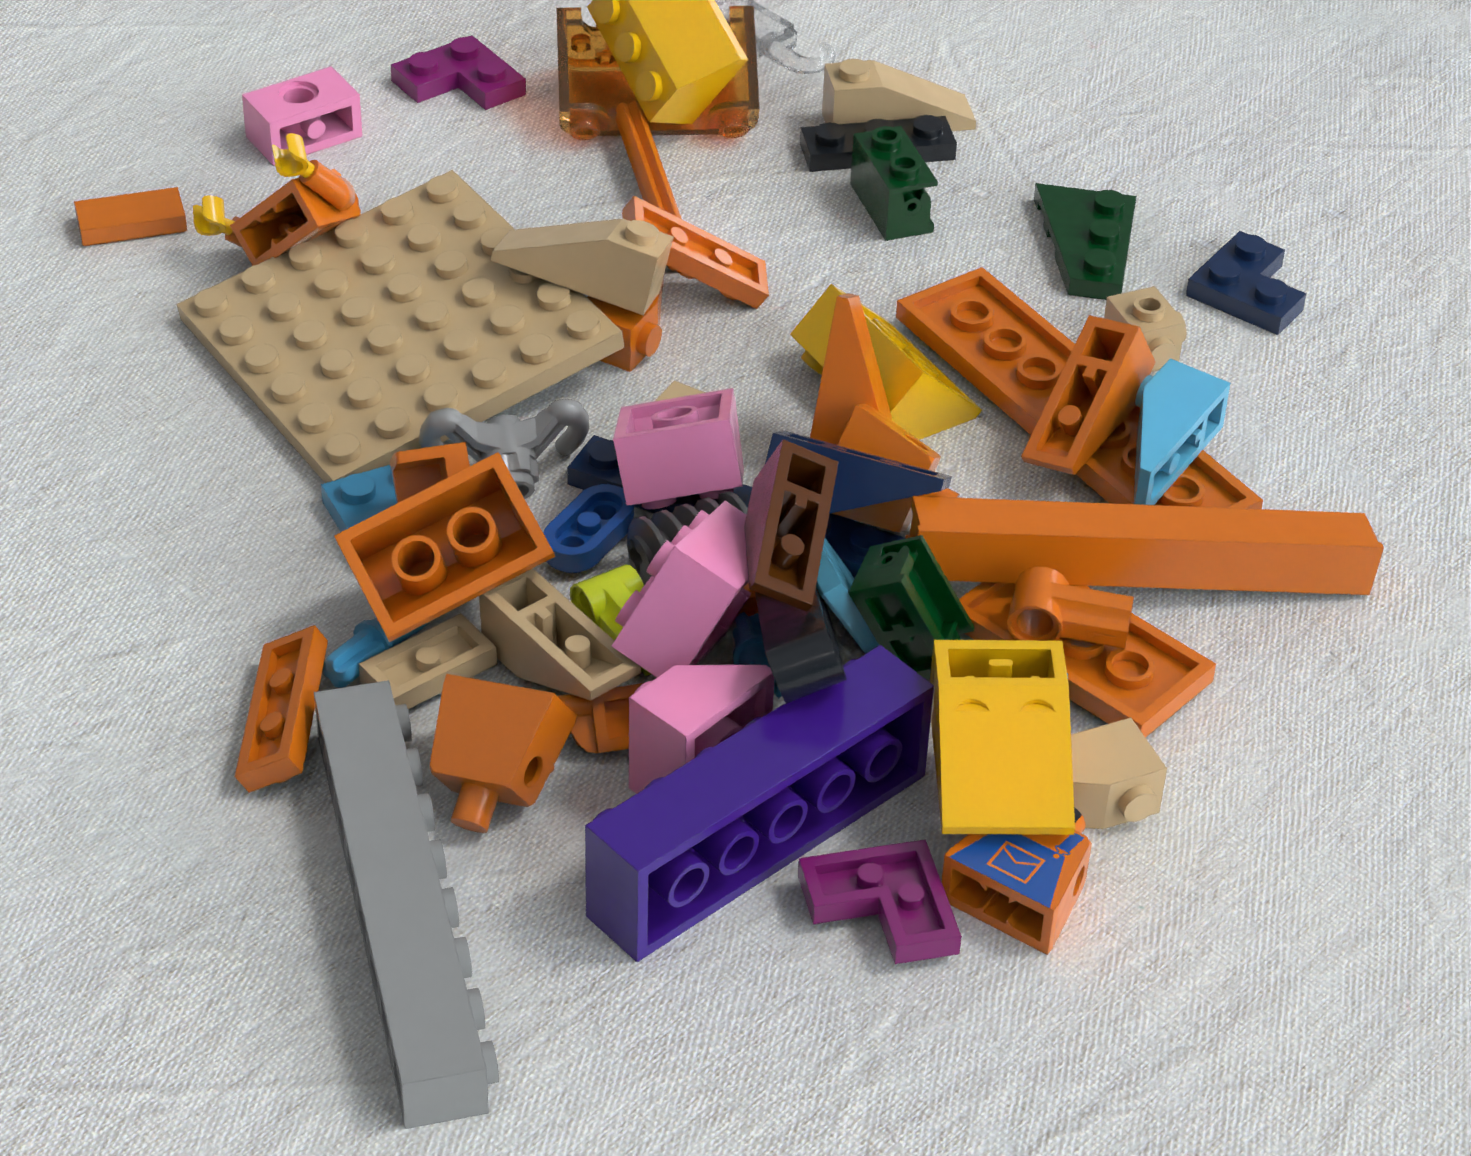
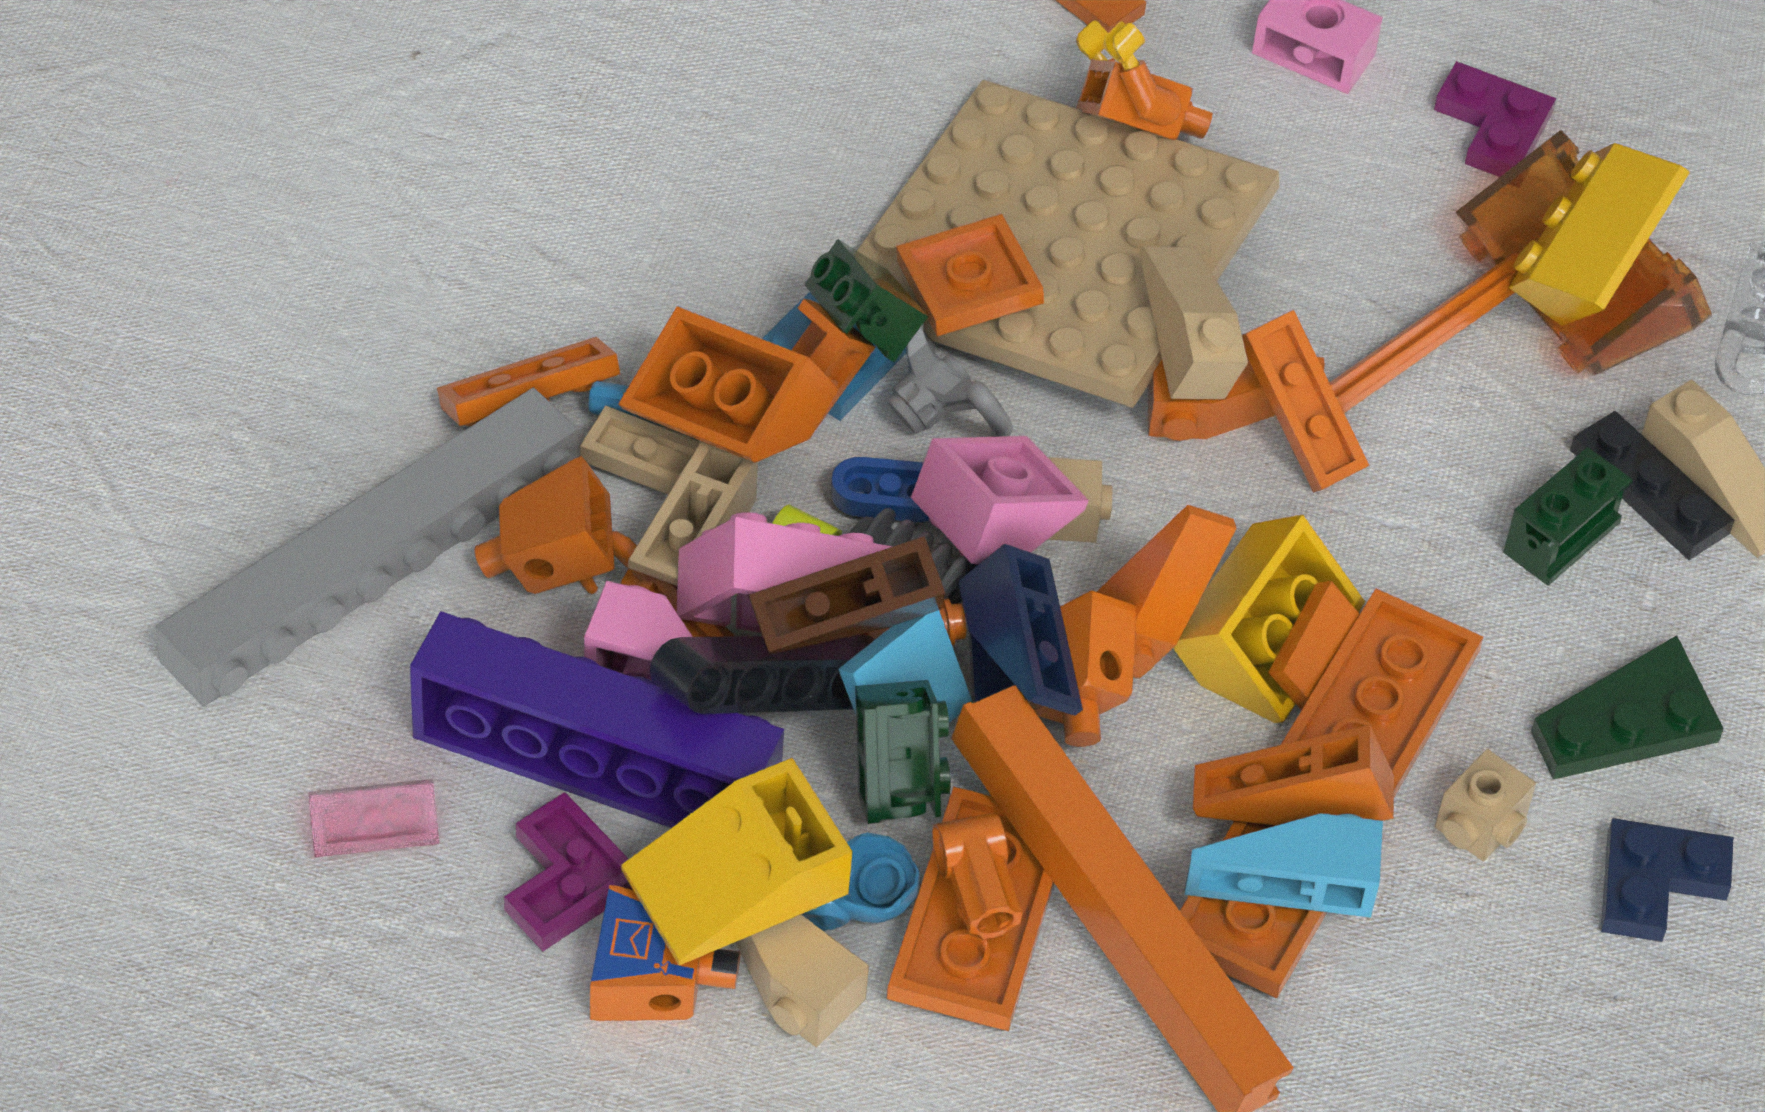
camera: 60 degrees right, 10 degrees up
(414, 421) = (865, 294): none -> dark green hinge
(422, 367) = (969, 275): none -> orange plate
(738, 1014) = (373, 818): none -> clear pink plate
(932, 352) = (1313, 641): none -> orange tile

